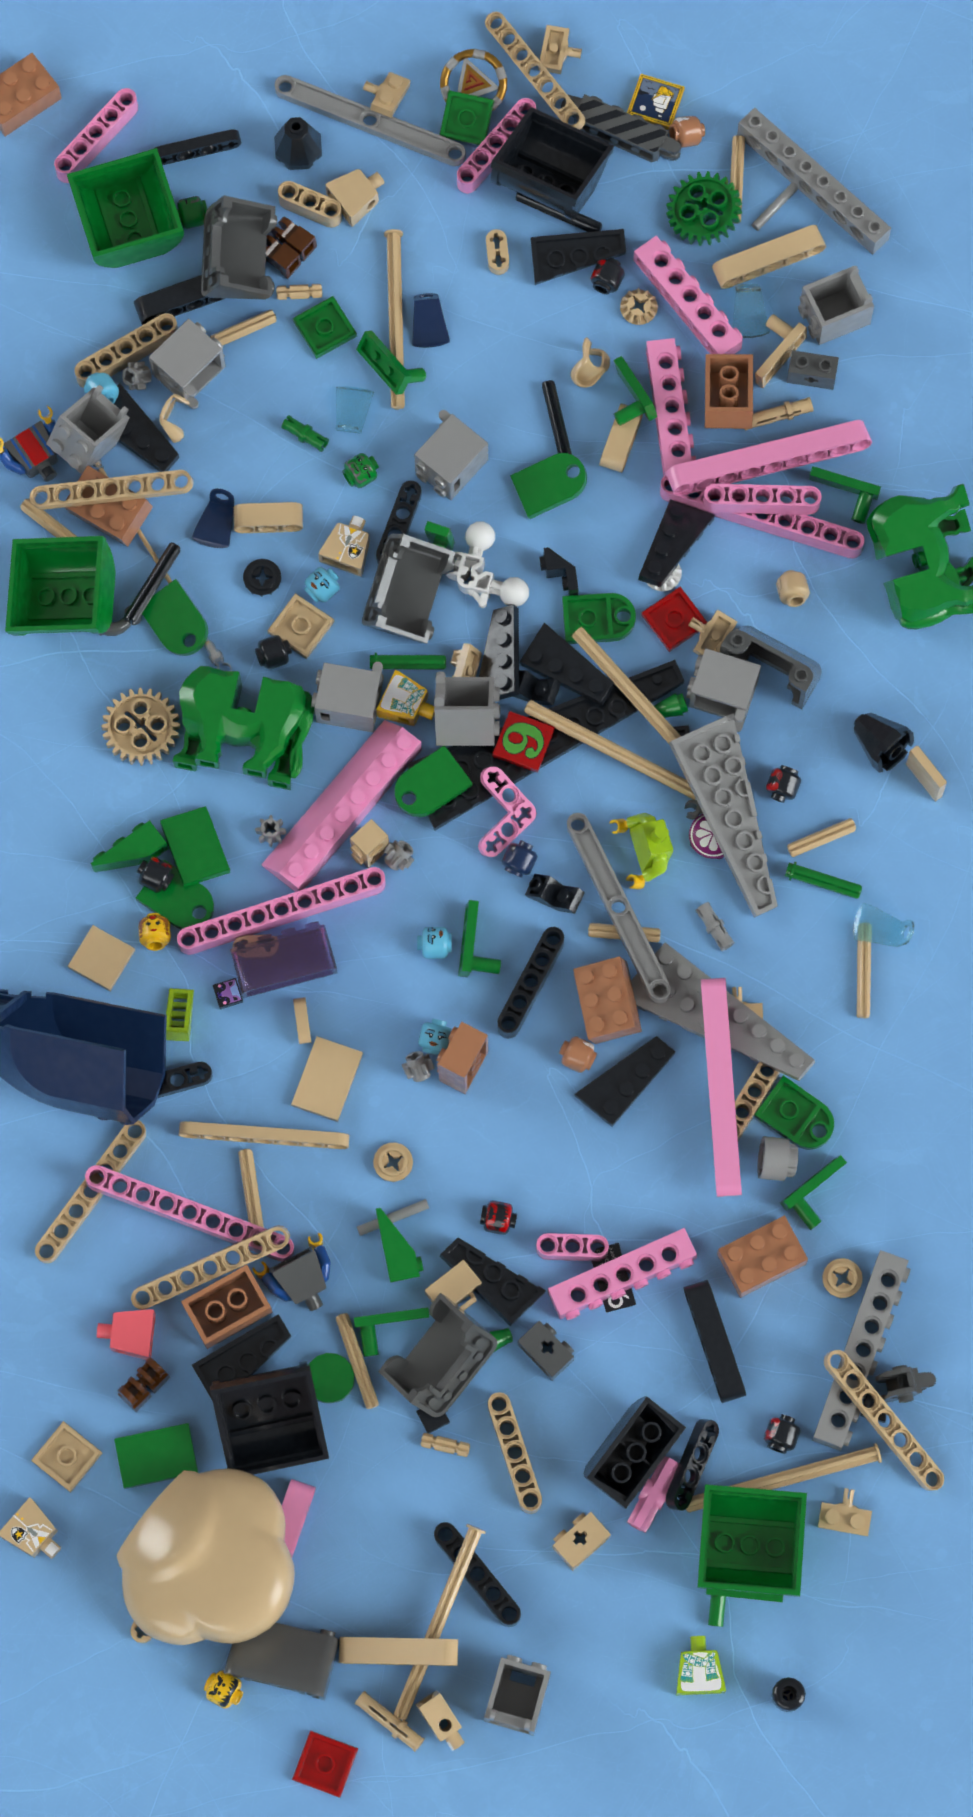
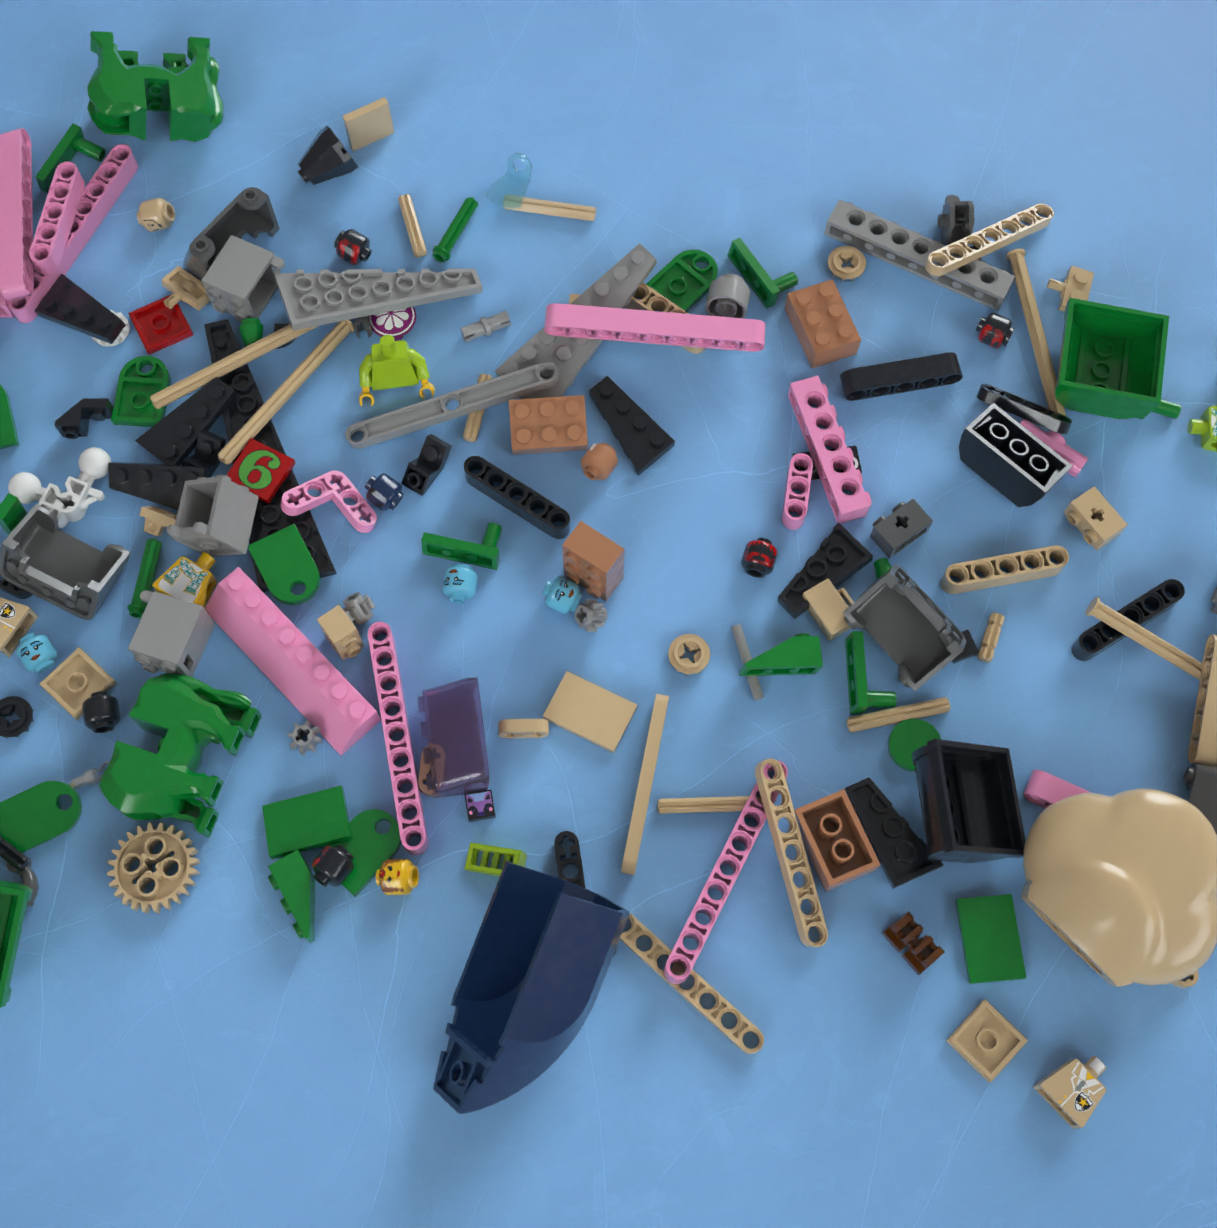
camera: 85 degrees left, 5 degrees down
(101, 958) = (416, 942): tan tile -> none
(130, 1333) = (854, 951): coral torso -> none
(299, 1276) = (807, 759): dark grey torso -> none

